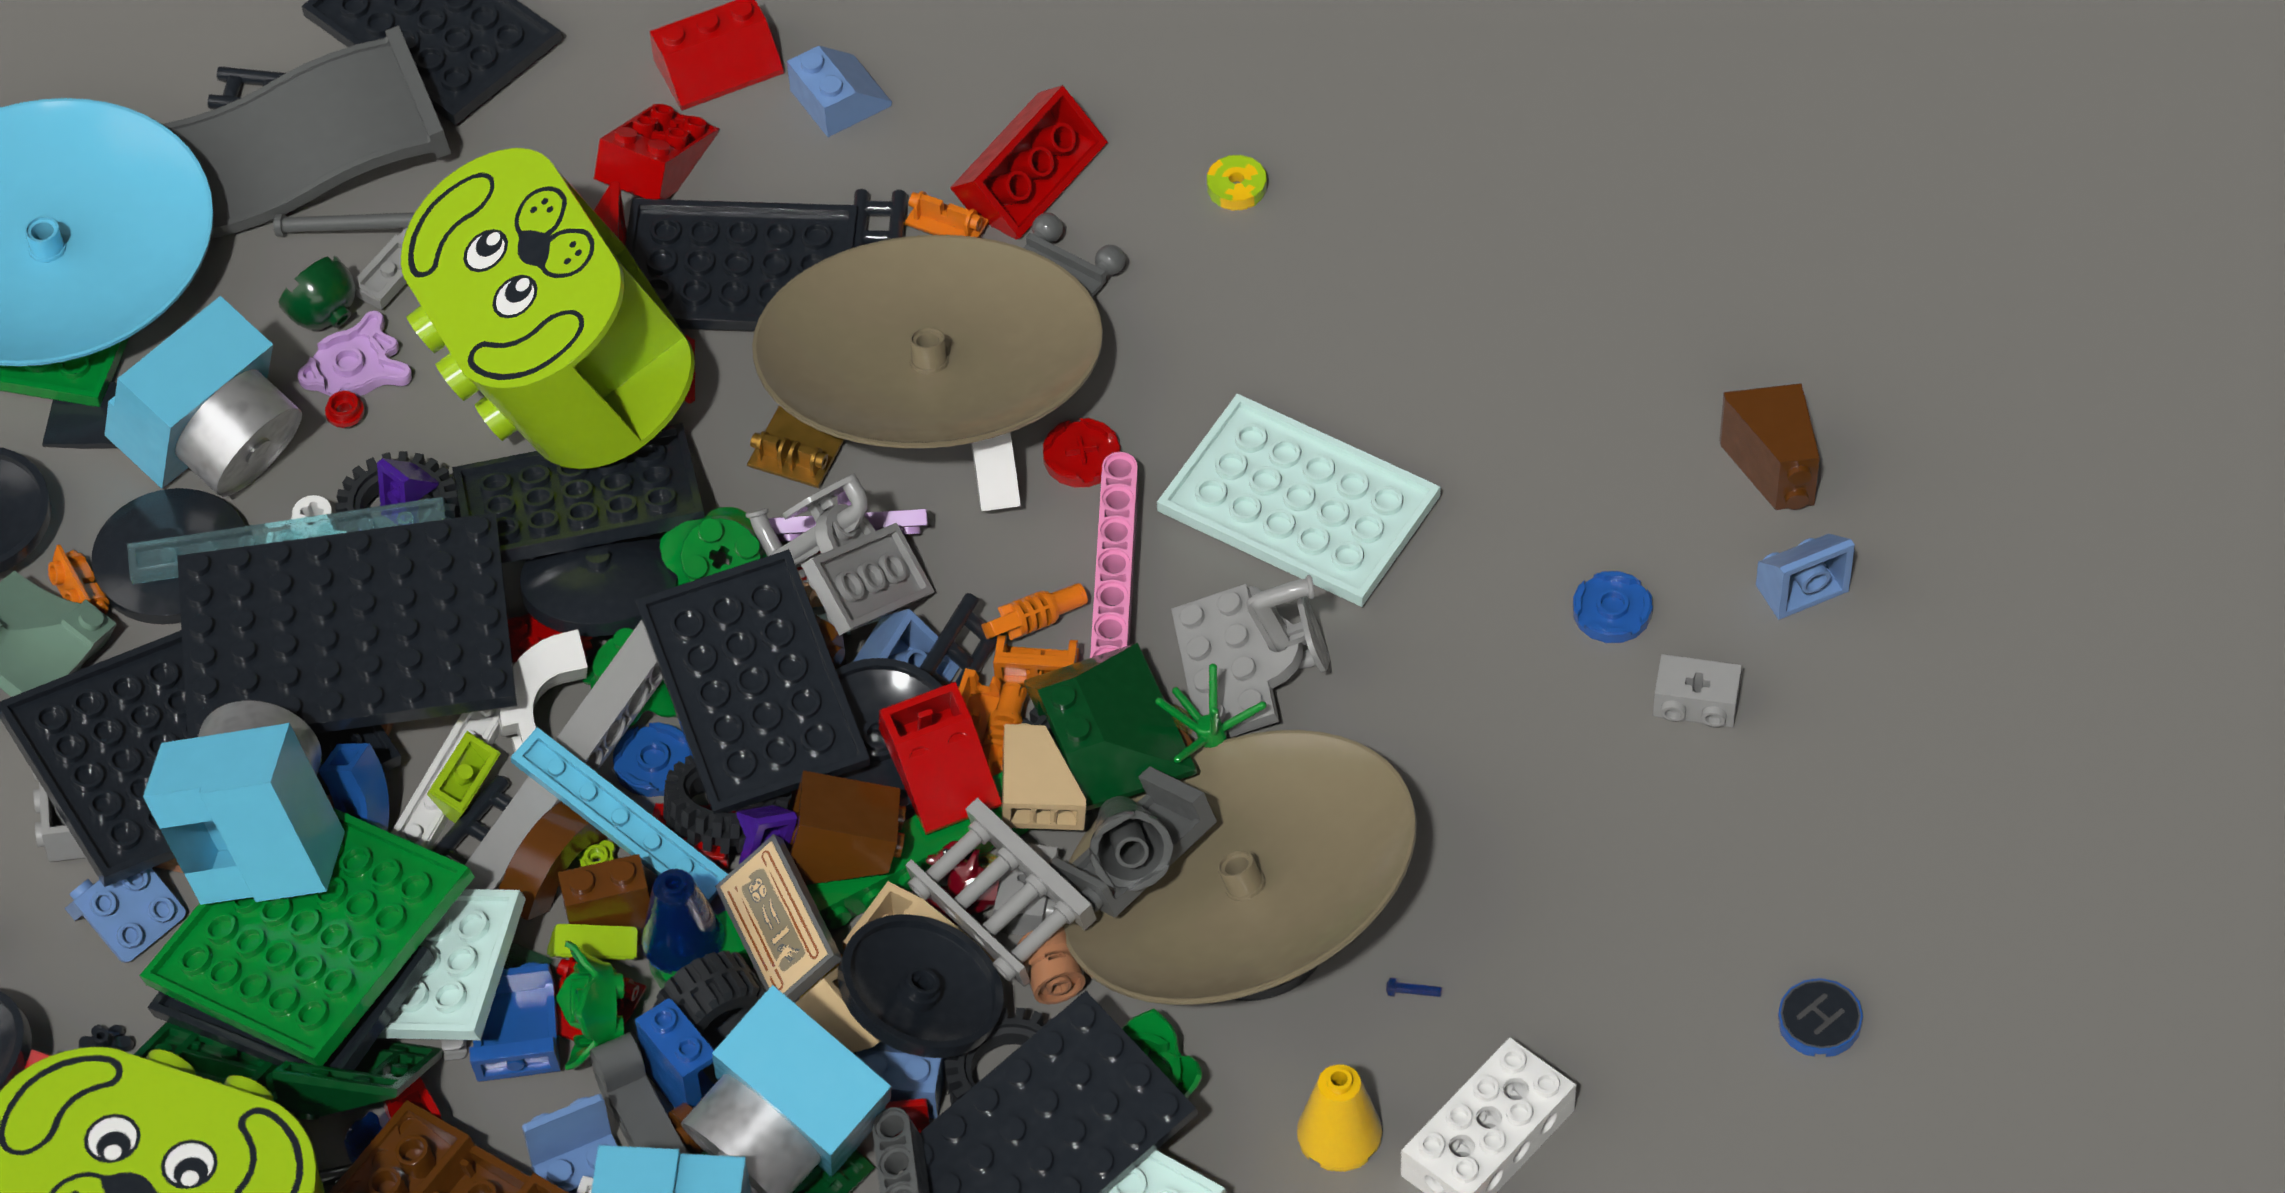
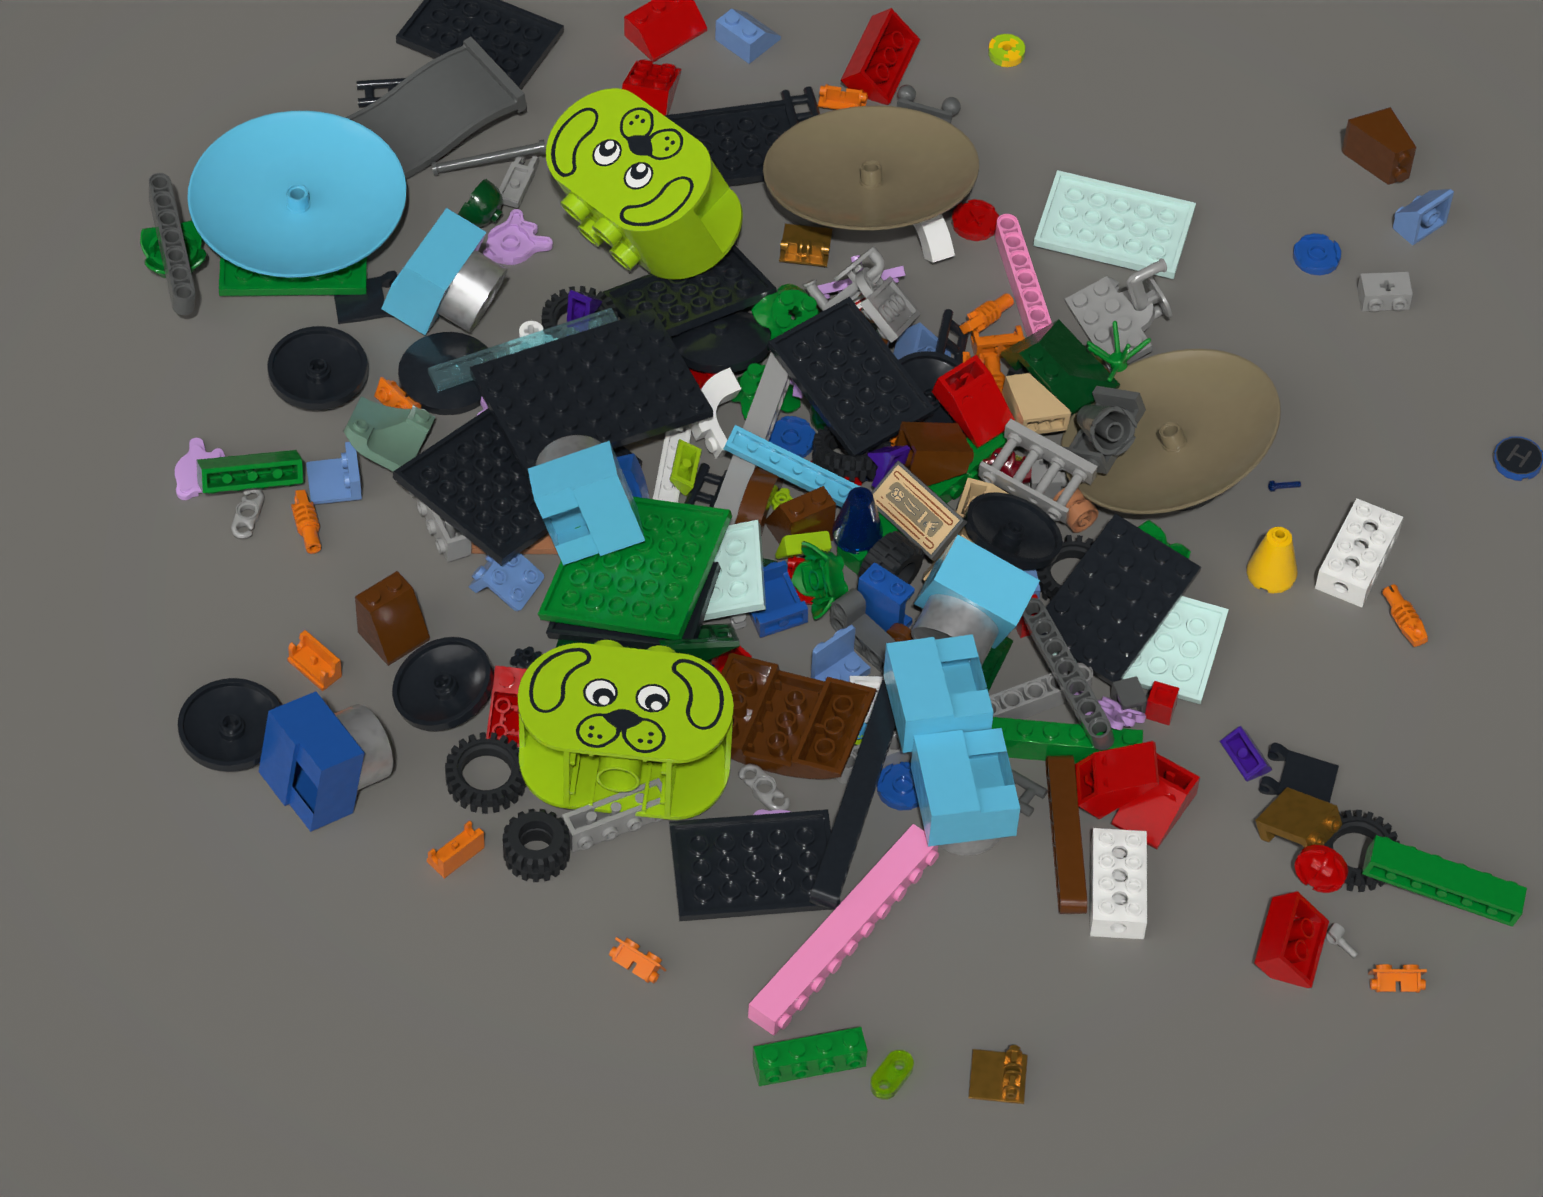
camera: 20 degrees left, 0 degrees up
(341, 402) = (520, 269): red plate -> none

